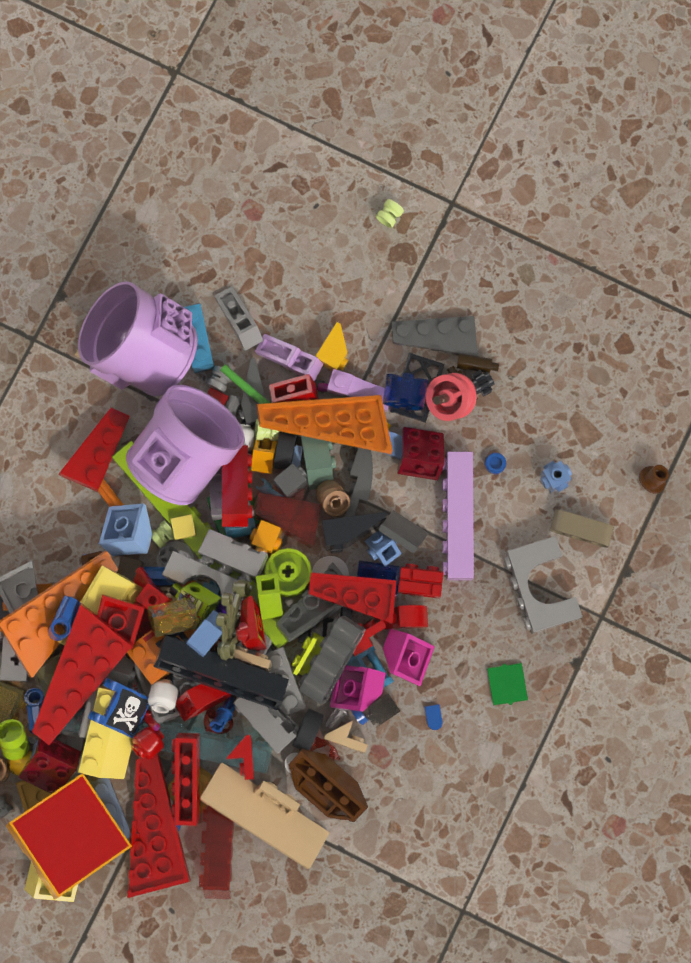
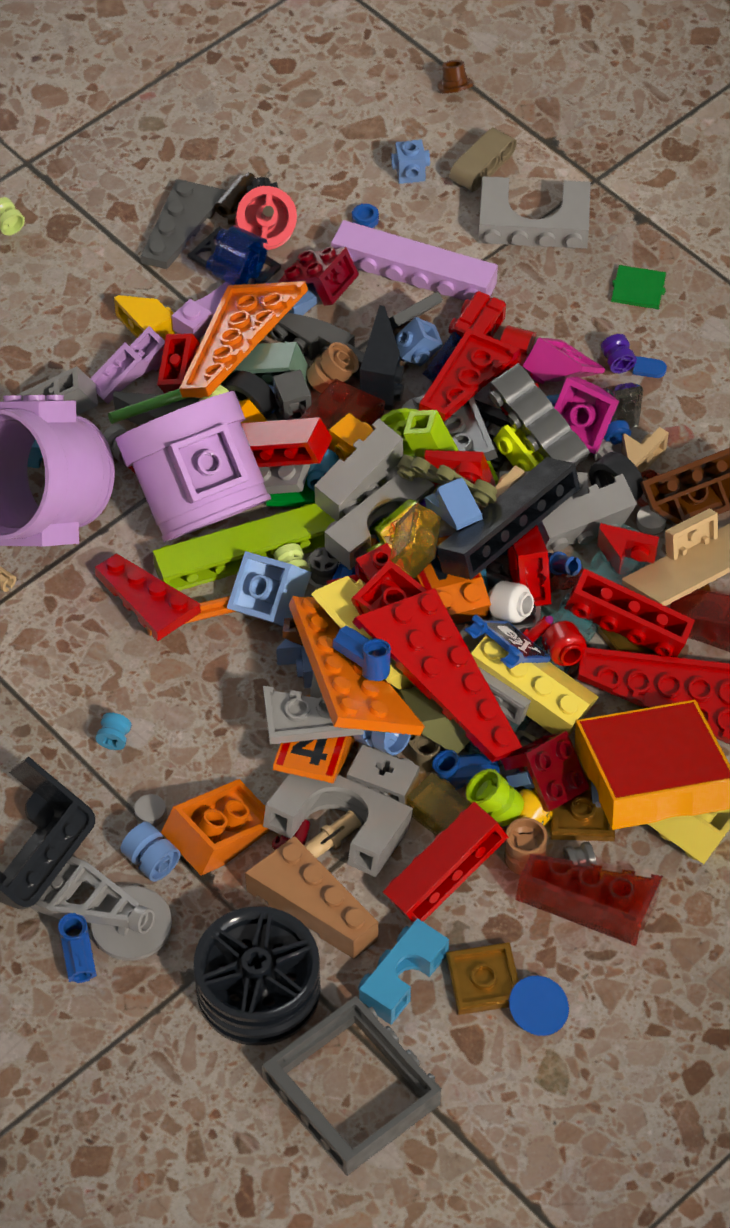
camera: 65 degrees left, 25 degrees down
(183, 527) = (295, 525): light yellow tile -> none
(430, 696) = (618, 353): none -> dark purple wheel

